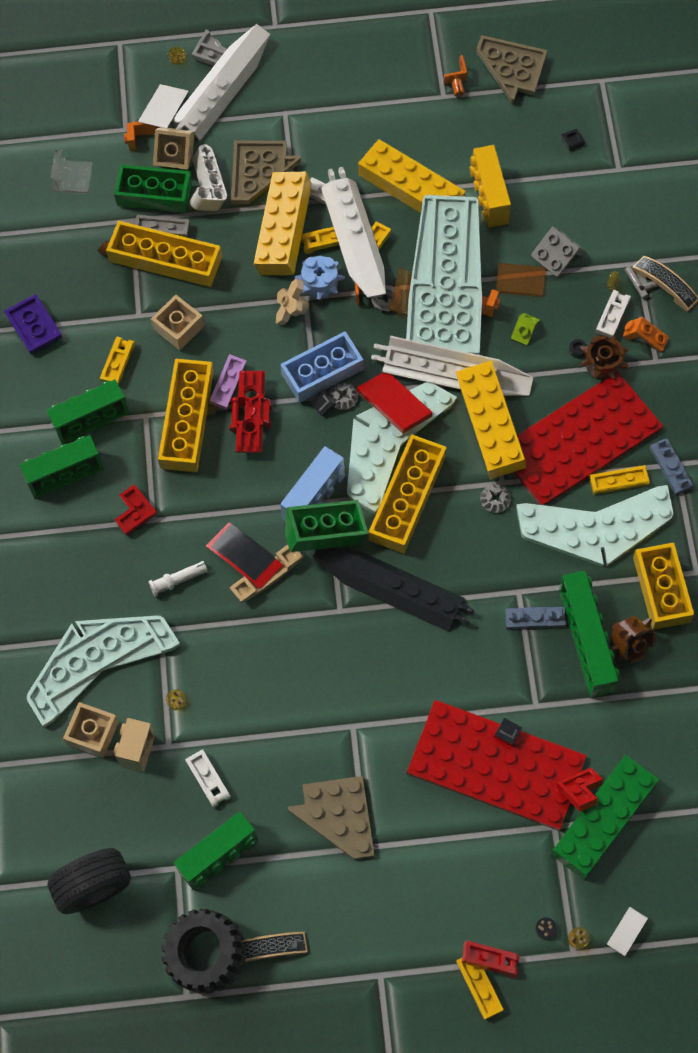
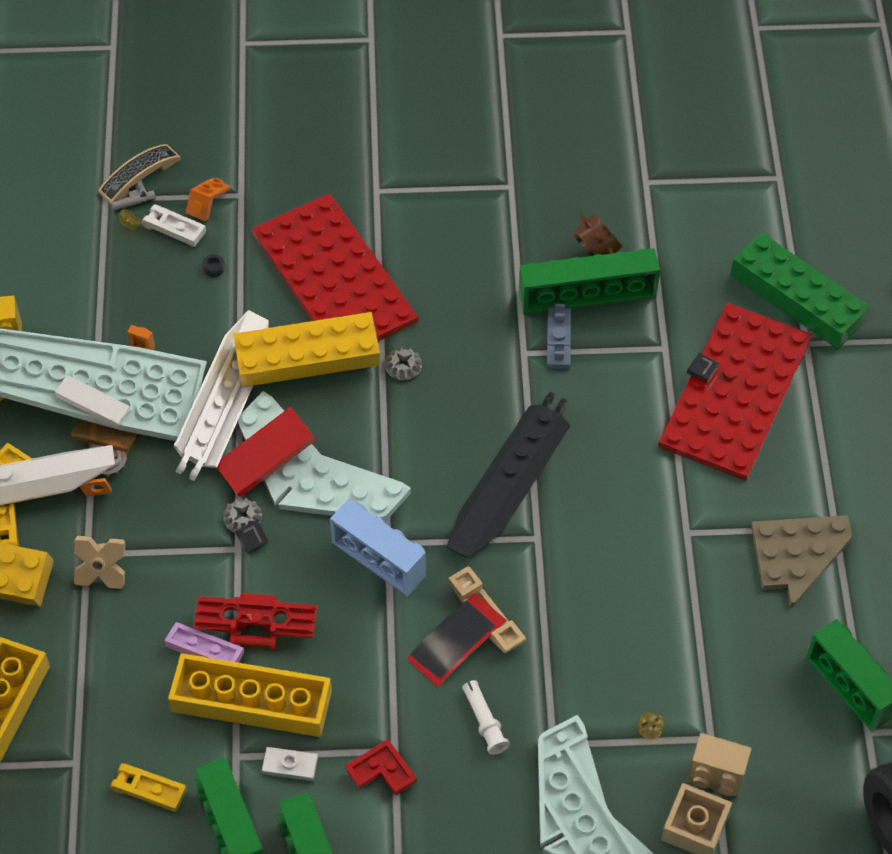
camera: 90 degrees left, 10 degrees down
(138, 450) = (290, 764): none -> white plate
(177, 322) = (105, 702): tan brick -> none
(207, 777) = (755, 690): white plate -> none
(319, 276) = (60, 526): light blue brick -> none
(322, 367) = (202, 530): light blue brick -> none
(325, 526) = (438, 528): green slope -> none
(407, 494) = (393, 447): yellow brick -> none
(423, 273) = (92, 401): none -> white tile
(520, 279) = (105, 315): clear orange piece -> none
(524, 328) = (179, 312): lime bracket -> none
(556, 251) = (77, 271): light grey bracket -> none
(578, 787) = (773, 307): red plate -> none
(587, 533) = (459, 272): light aqua wing -> none
(604, 357) = (235, 235): reddish brown brick -> none
(619, 479) = (391, 242): yellow tile -> none
(663, 586) = (532, 209): yellow brick -> none
(671, 466) = (380, 193): sand blue plate -> none

